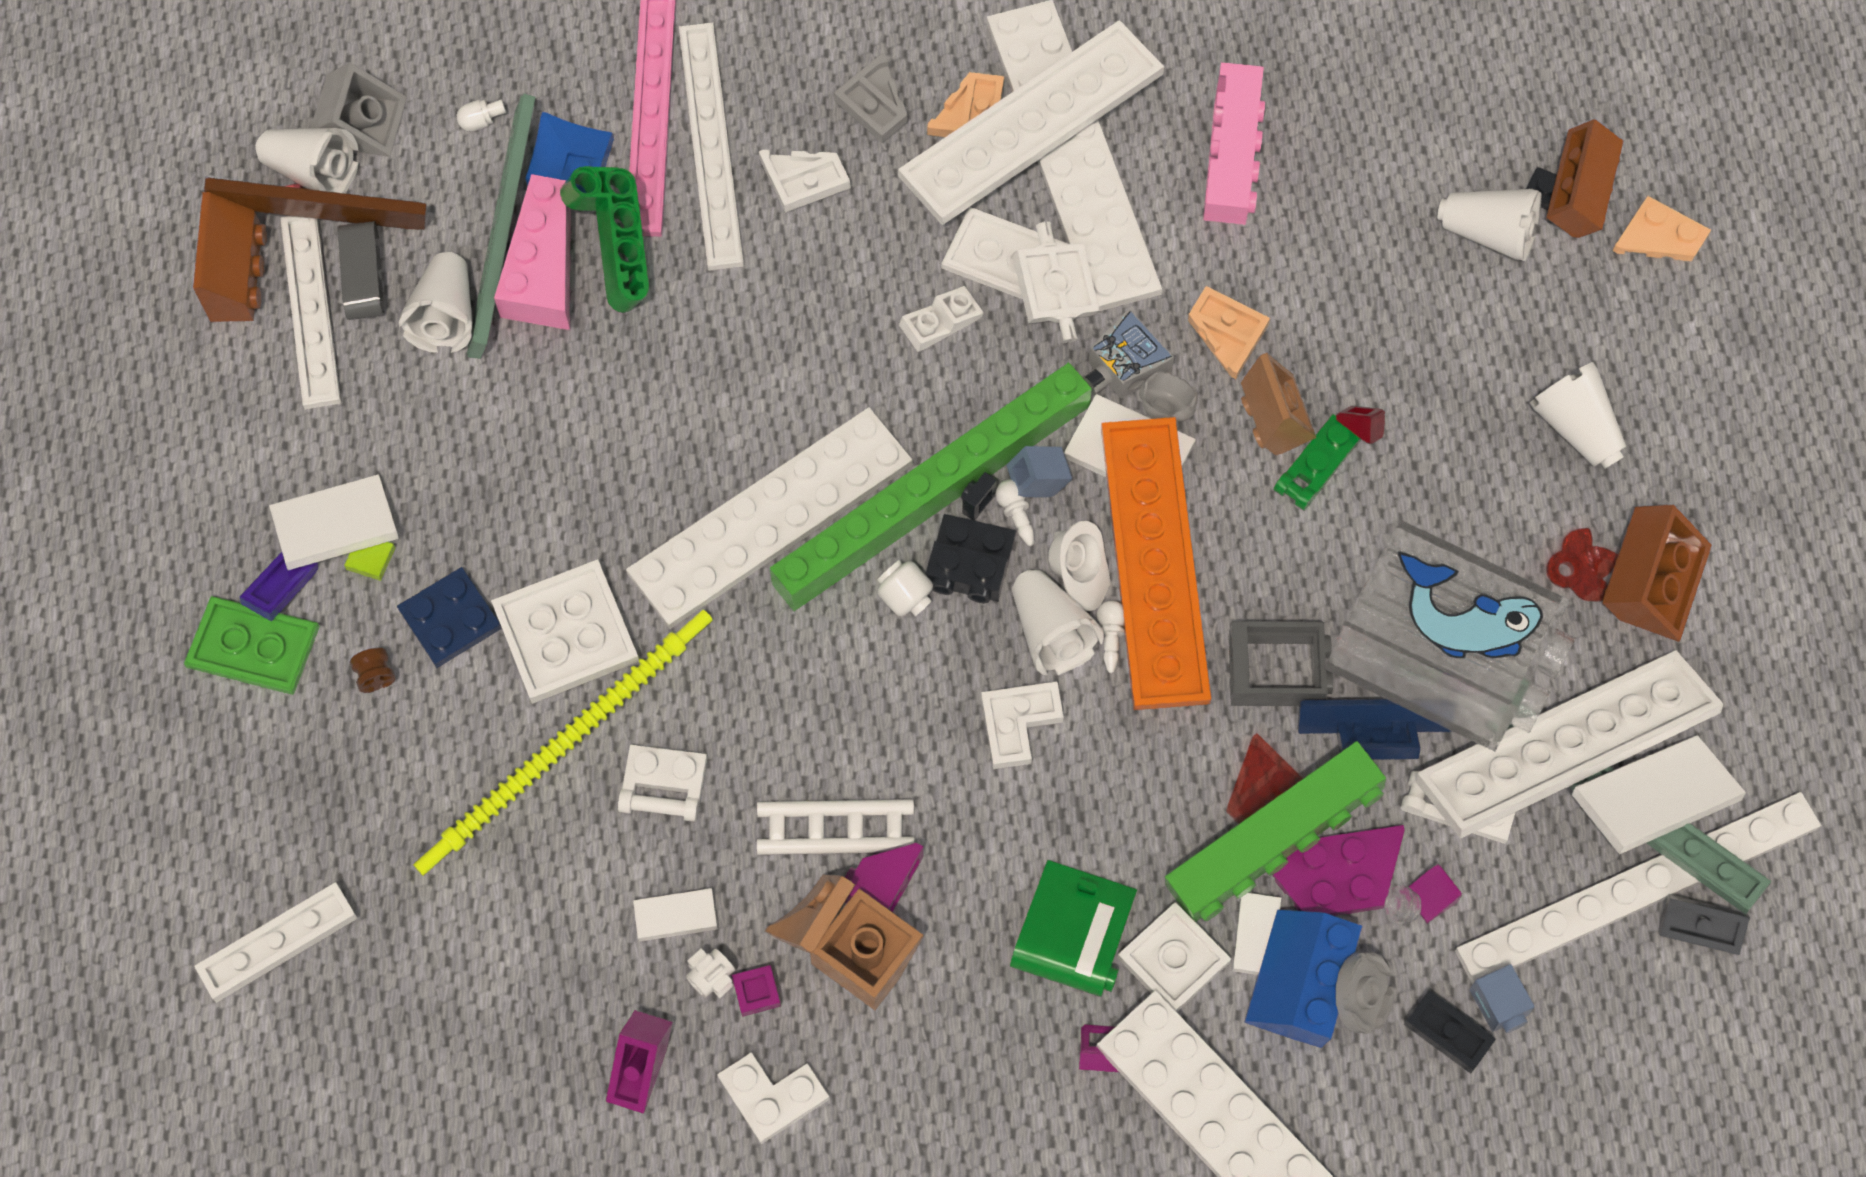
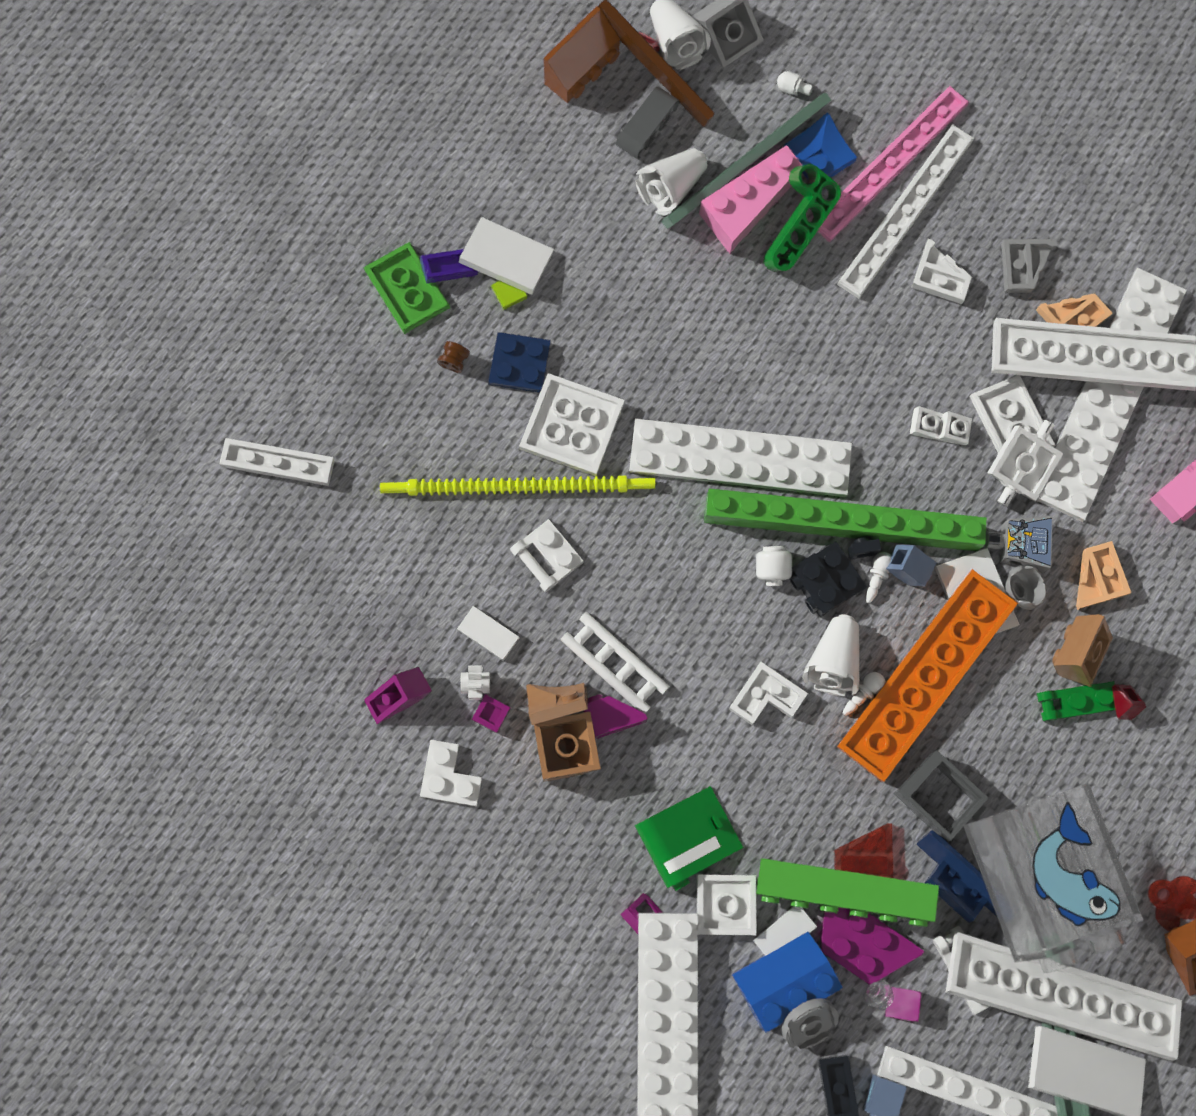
camera: 40 degrees right, 10 degrees up
(310, 312) = (600, 124): white tile -> none
(1081, 563) = (883, 640): white piece -> none

